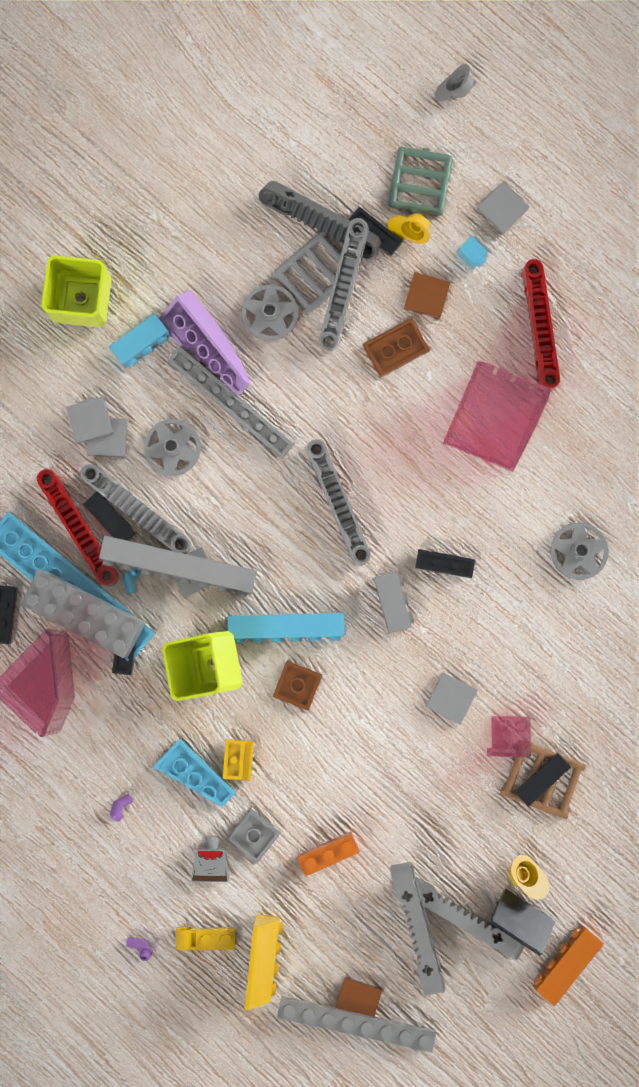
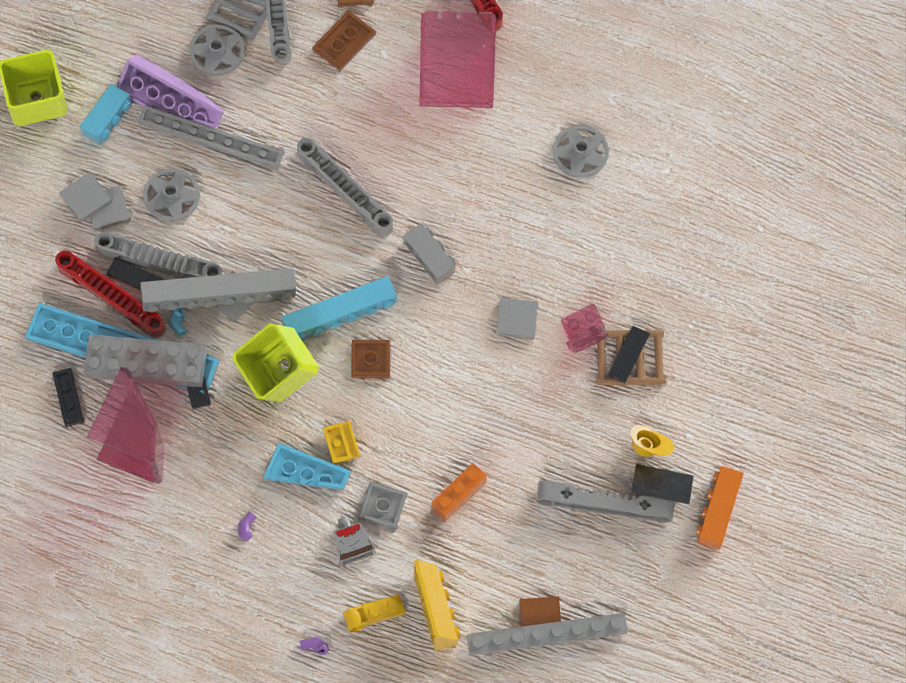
camera: 25 degrees left, 15 degrees down
(429, 966) = (600, 565): light grey gear -> none
(445, 563) = (463, 204): black plate -> none

